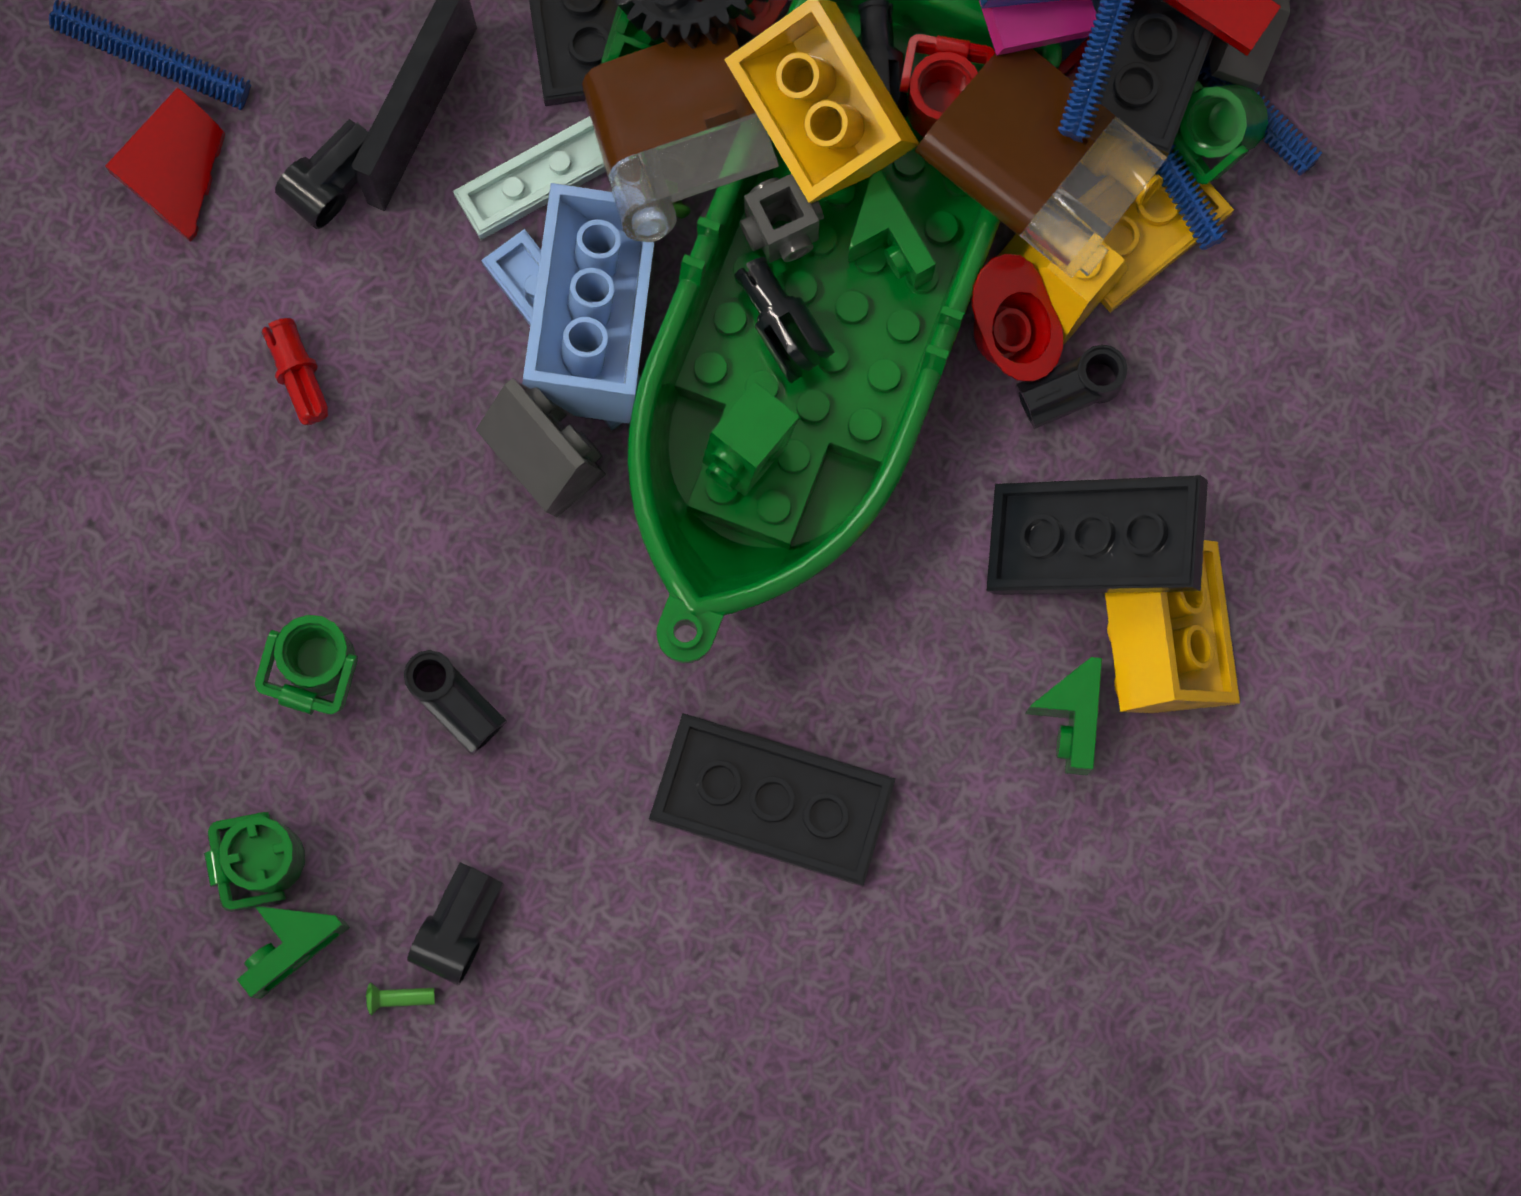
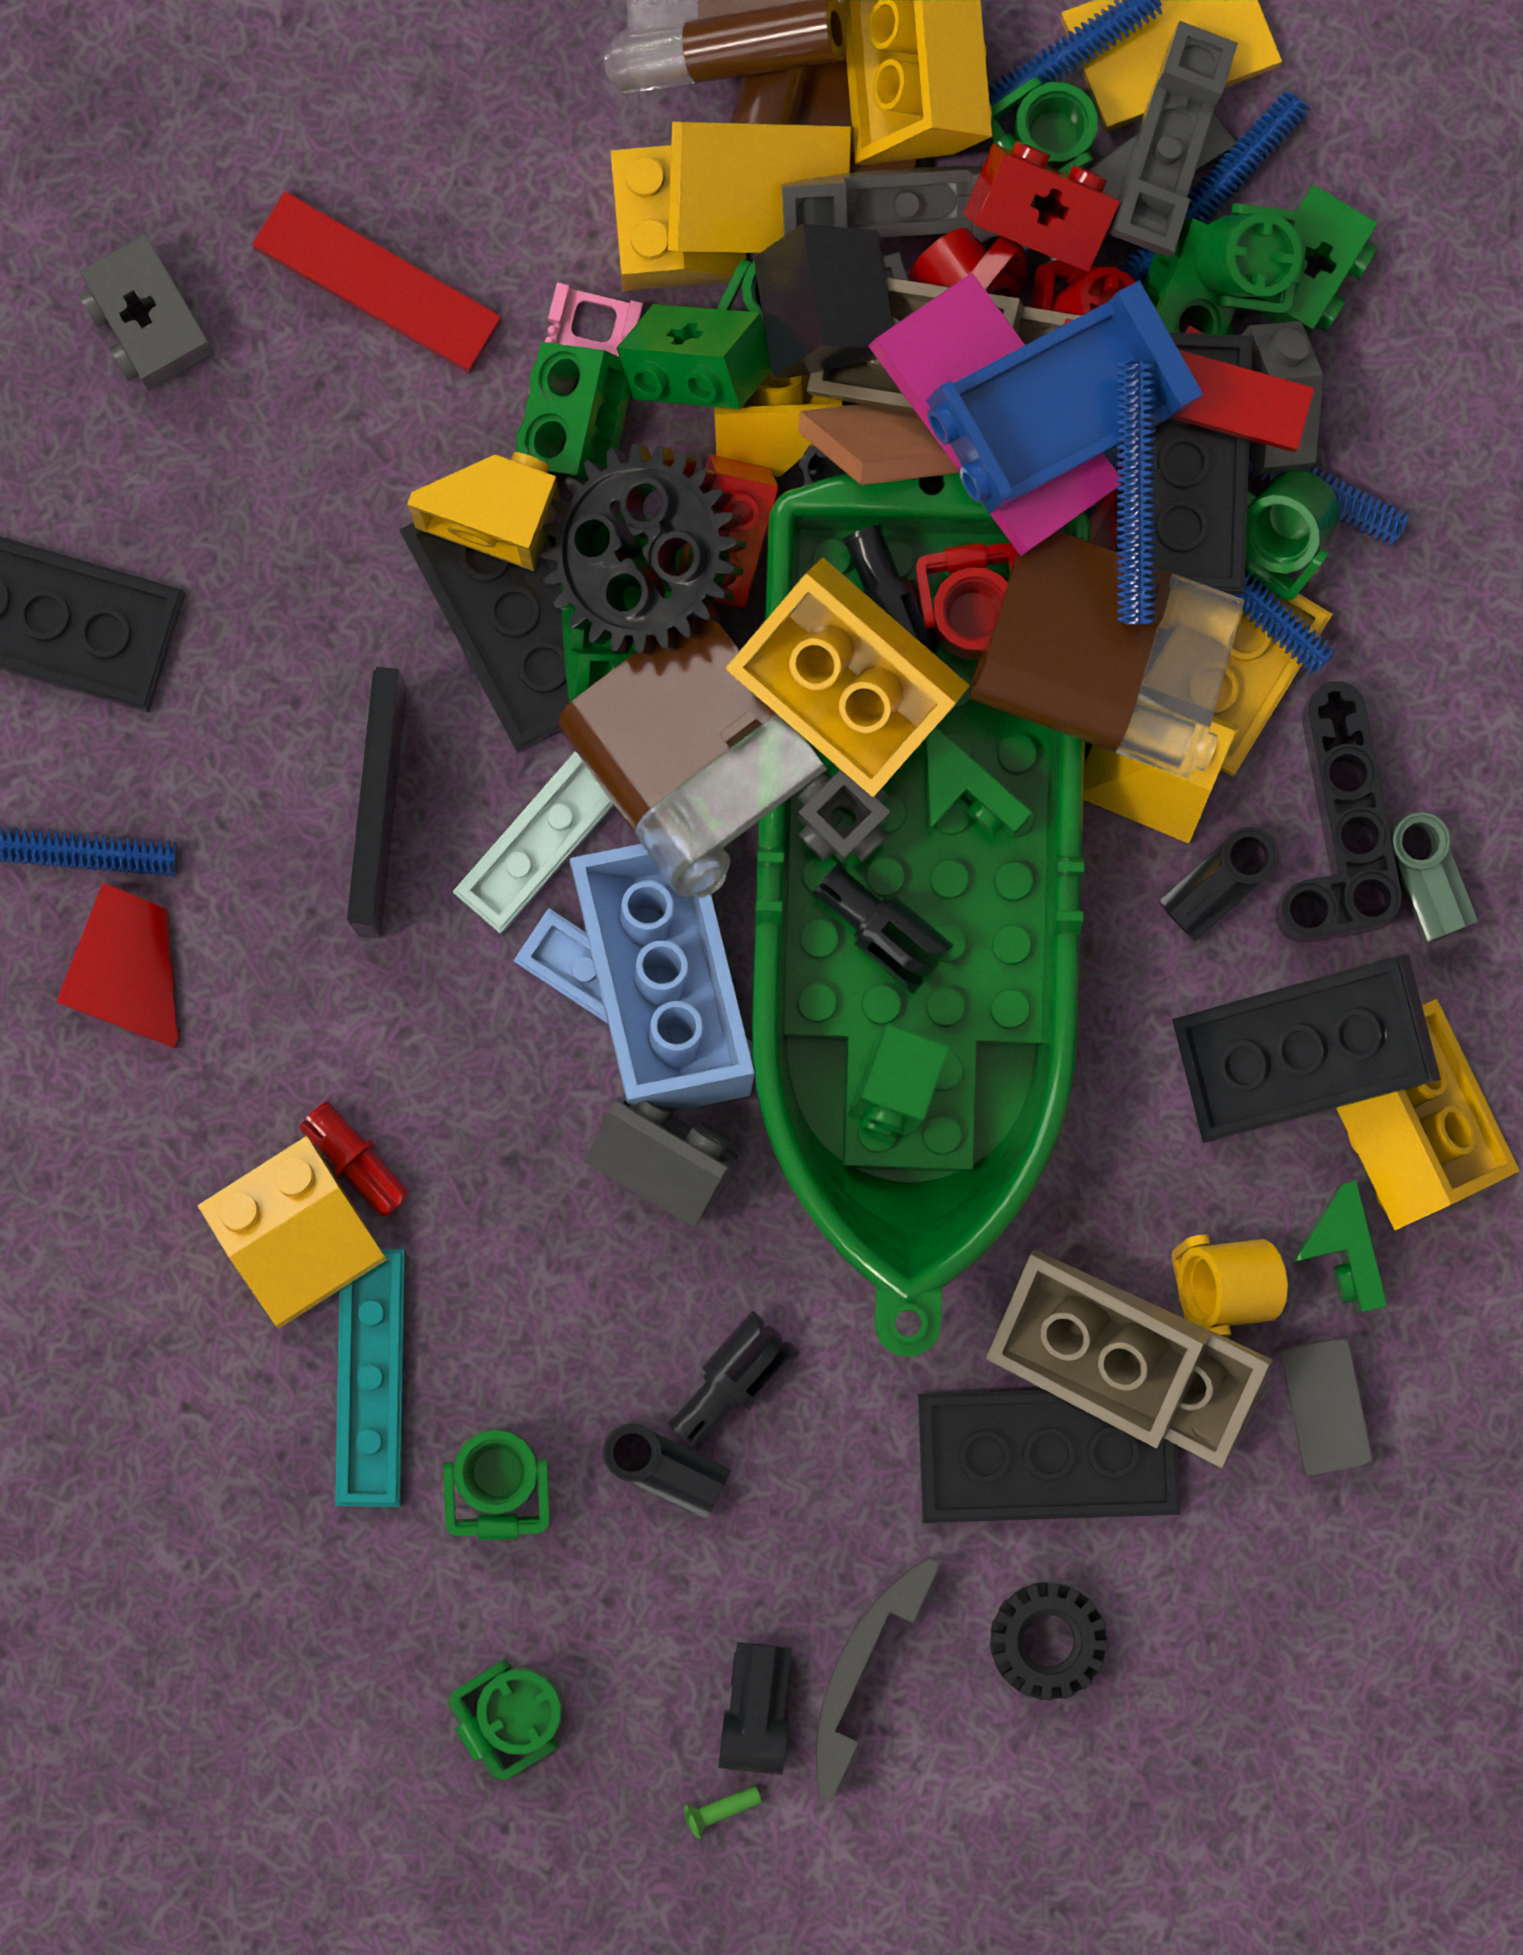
camera: 20 degrees left, 5 degrees up
(222, 407) = (292, 1232): none -> yellow slope
(244, 549) = (371, 1386): none -> teal tile
(301, 937) = (595, 1780): green slope -> none
(320, 184) = (301, 935): black piece -> none
(506, 976) = (834, 1747): none -> dark grey slope
(527, 653) = (734, 1378): none -> black arm
(712, 916) = (1087, 1651): none -> black tyre
(865, 741) = (1129, 1360): none -> dark tan slope
(966, 709) = (1229, 1282): none -> yellow piece
(1015, 839) = (1326, 1406): none -> dark grey slope
(1016, 319) = (1137, 834): red piece -> none
(1187, 363) = (1338, 809): none -> black beam
(1243, 443) = (1433, 883): none -> sand green piece

